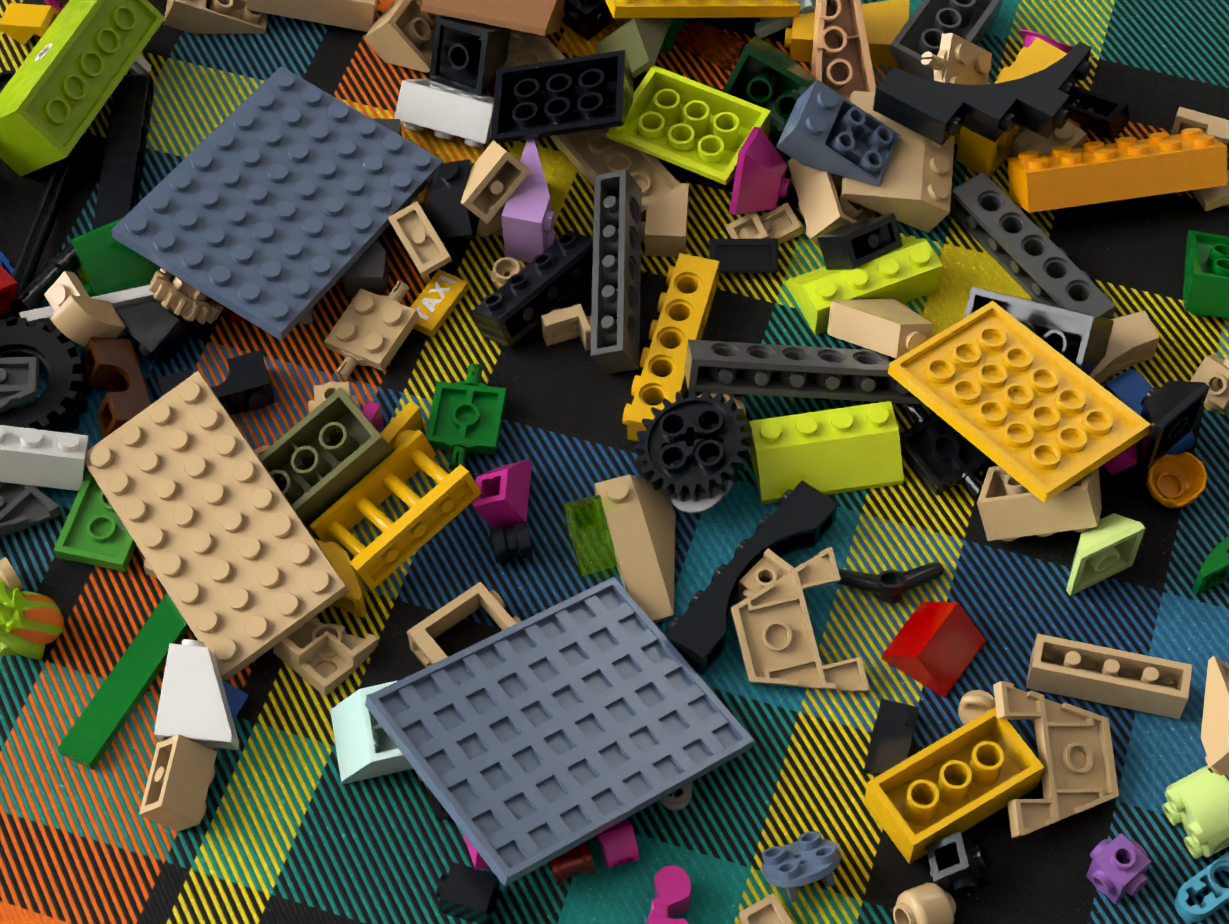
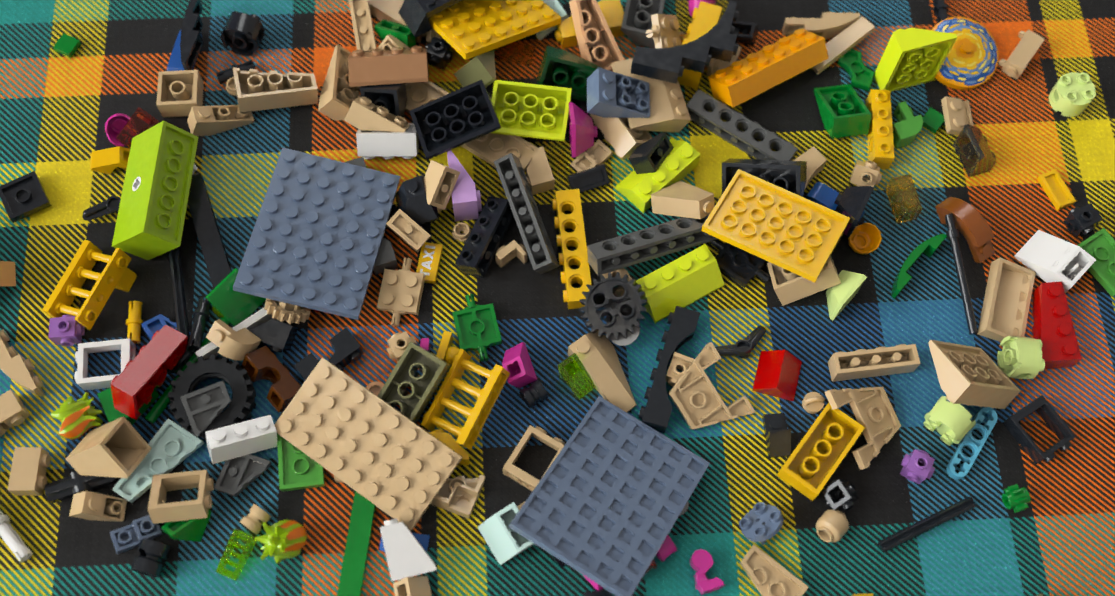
camera: 25 degrees left, 10 degrees up
(433, 63) = (370, 117): none -> tan slope

